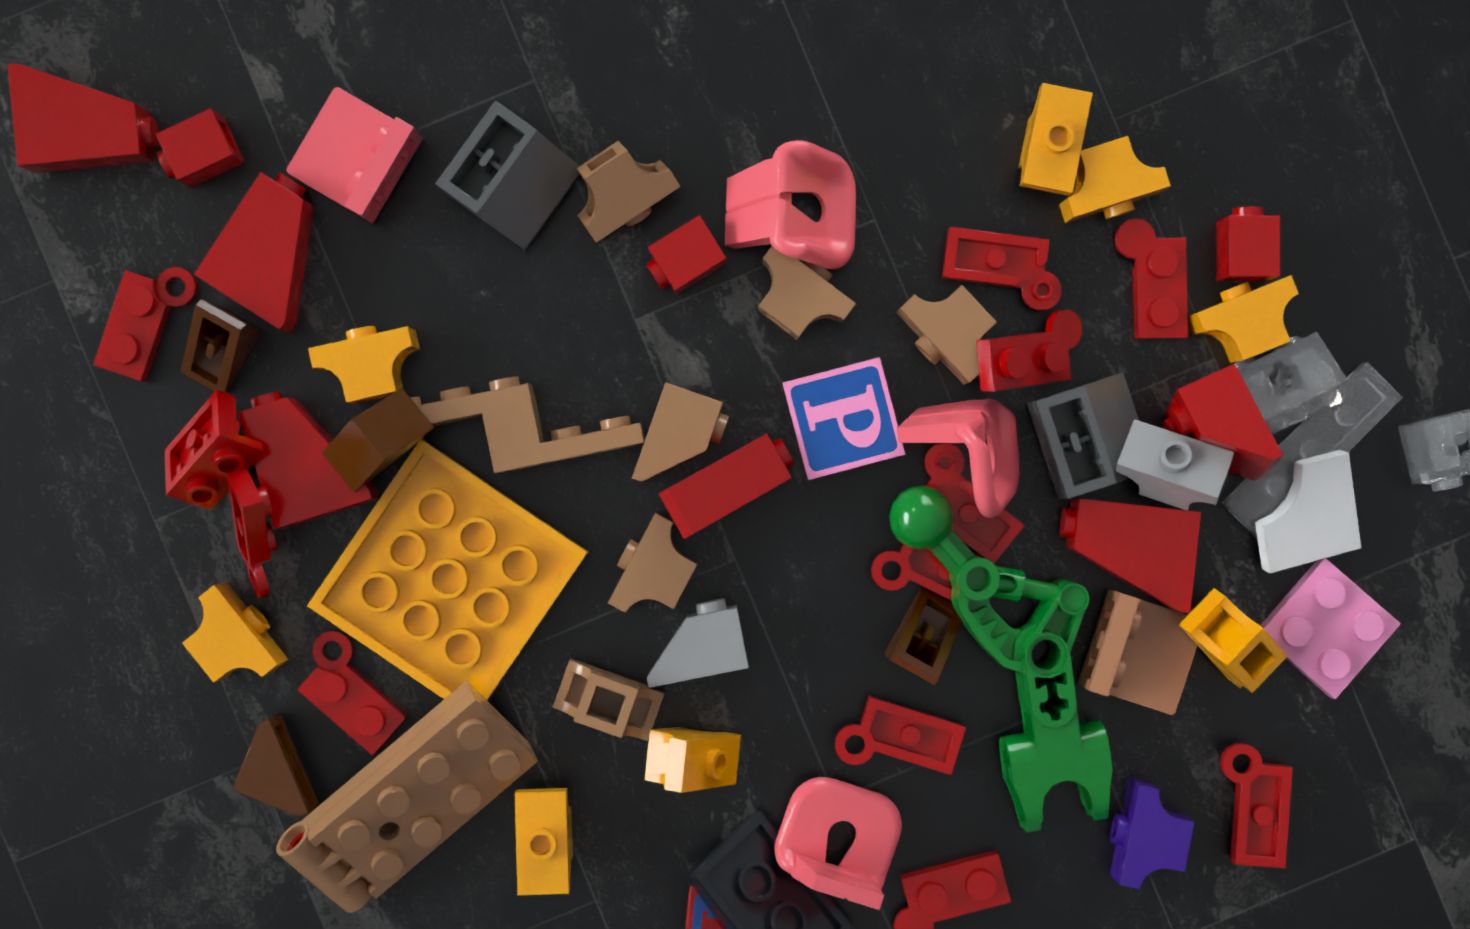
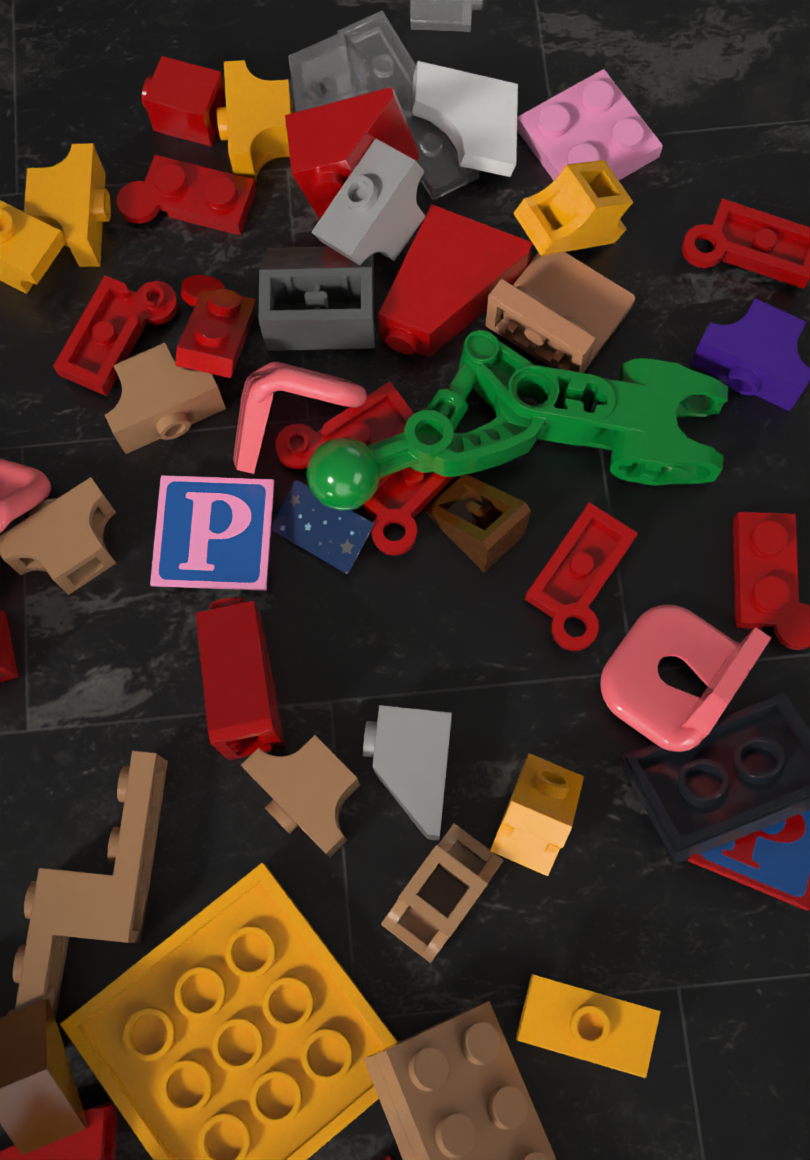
camera: 70 degrees left, 15 degrees down
(679, 430) = (162, 713): medium nougat slope -> none
(870, 518) = (320, 529): none -> dark blue sticker

